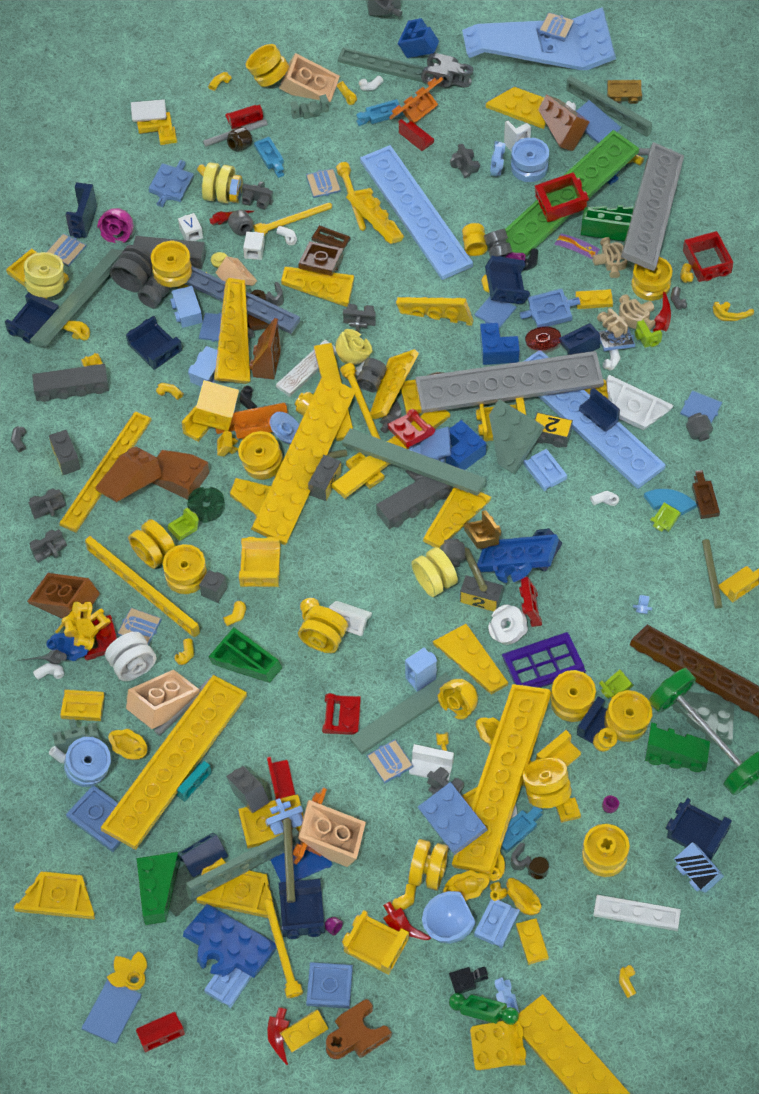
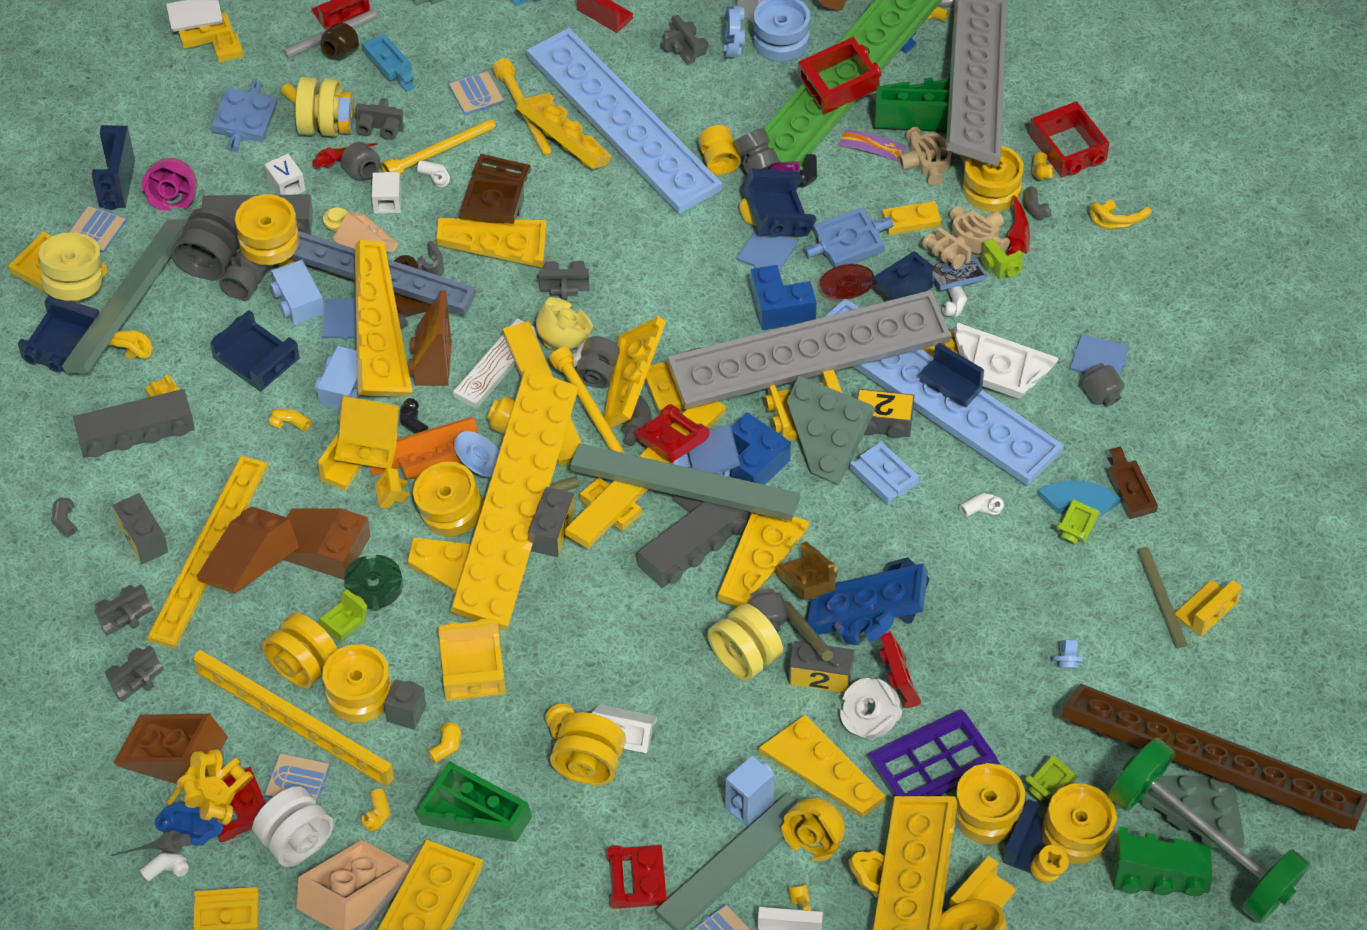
camera: 10 degrees left, 5 degrees down
(450, 308) = (678, 254): yellow wing -> none

